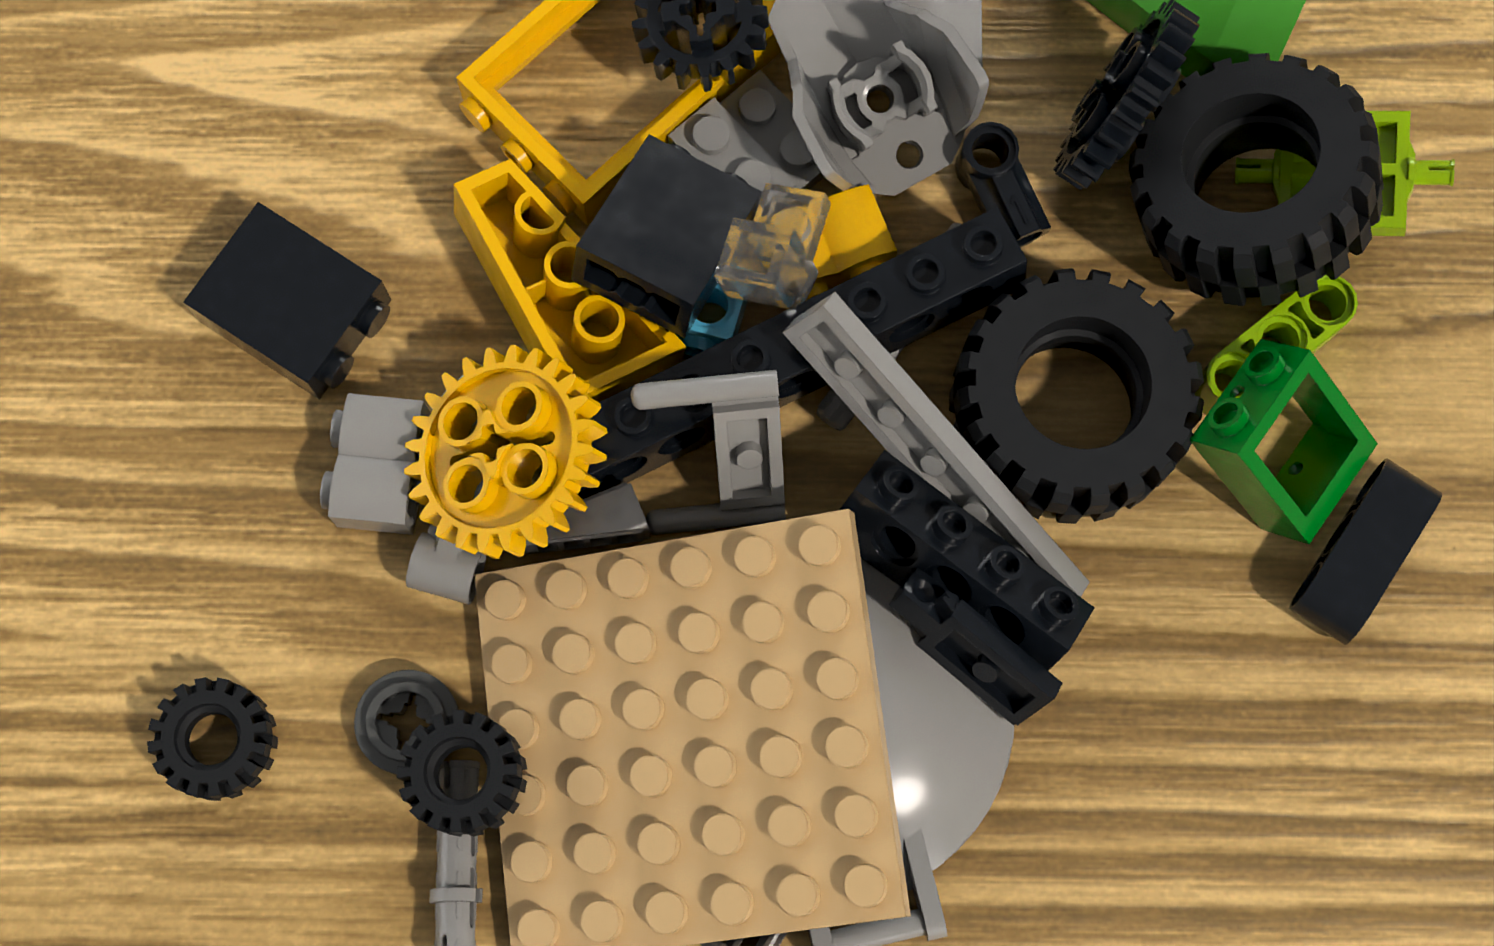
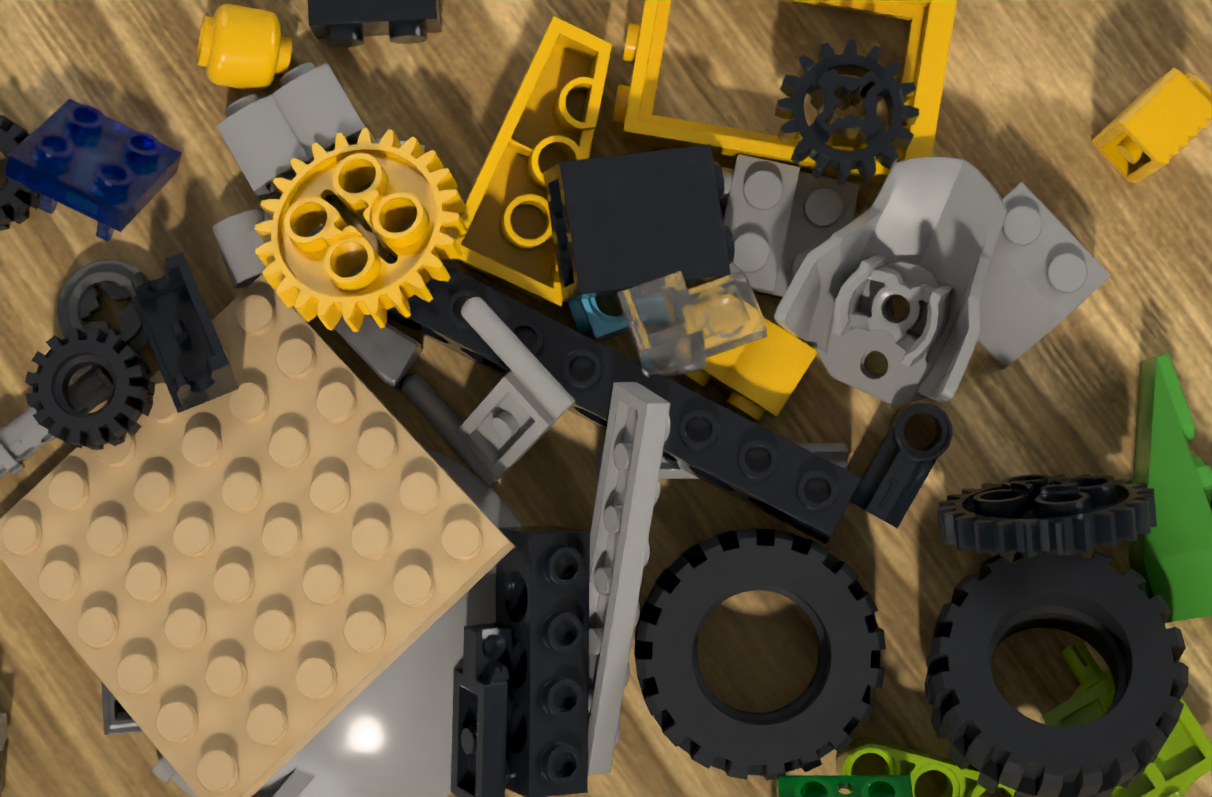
camera: 55 degrees right, 10 degrees up
(281, 454) = (243, 47): none -> yellow head
(281, 639) = (92, 166): none -> clear blue plate
(478, 661) = (182, 335): none -> black hinge

